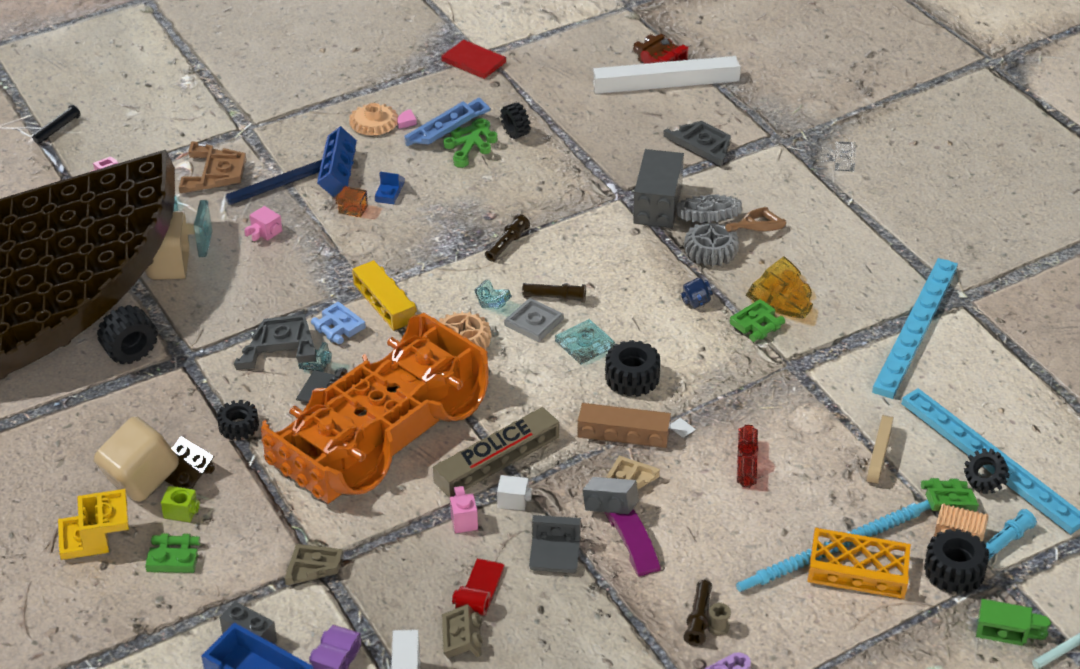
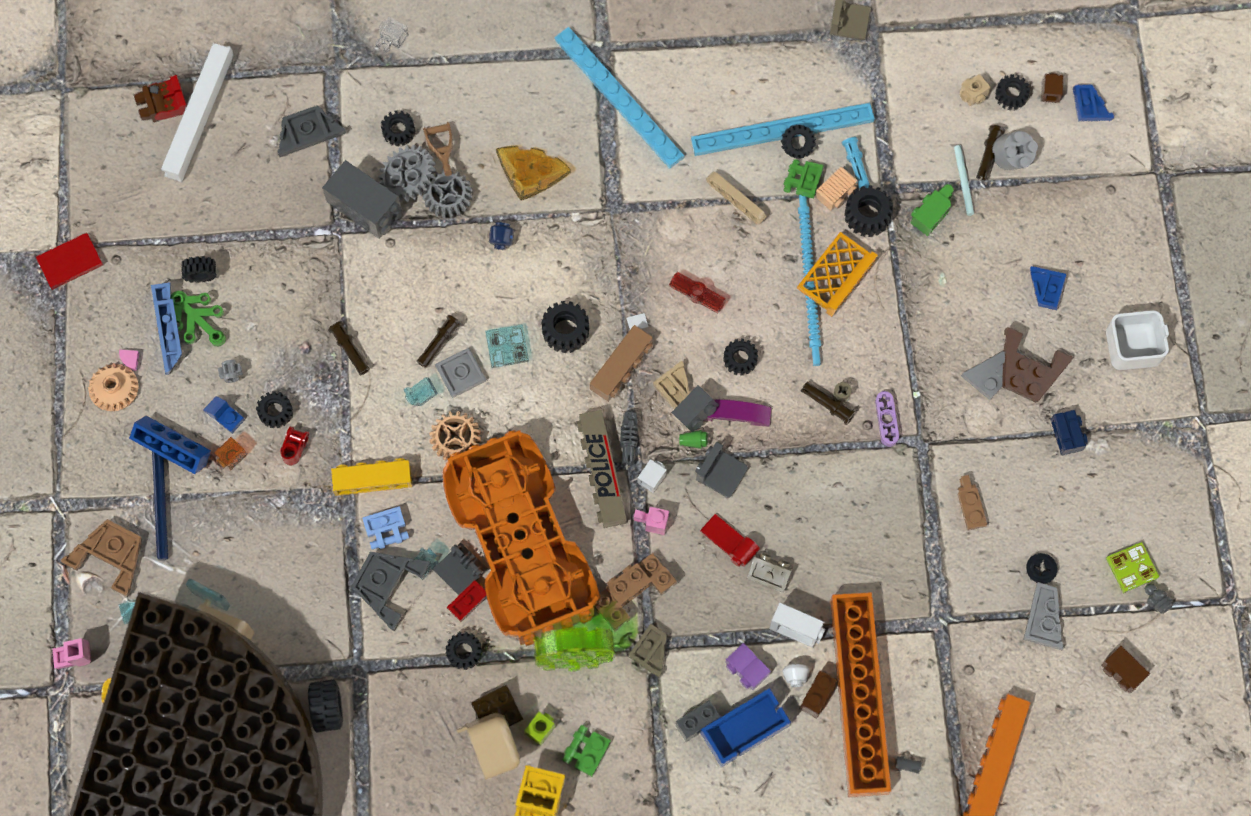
camera: 65 degrees left, 30 degrees up
(264, 223) = (221, 540): bright pink brick -> none
(272, 479) = (574, 648): none -> clear neon green brick
(283, 401) = (467, 601): none -> red plate
(376, 519) = (630, 585): none -> medium nougat bracket
(382, 236) = (294, 442): none -> red piece
(413, 213) = (271, 399): none -> black tyre
(432, 173) = (230, 371): none -> light grey gear
(545, 460) = (628, 437): none -> dark grey hinge
(577, 510) = (694, 439): none -> bright green cone
(700, 508) = (740, 367): none -> black tyre
(752, 191) = (396, 118): none -> black tyre
(754, 315) = (549, 210): bright green plate -> none

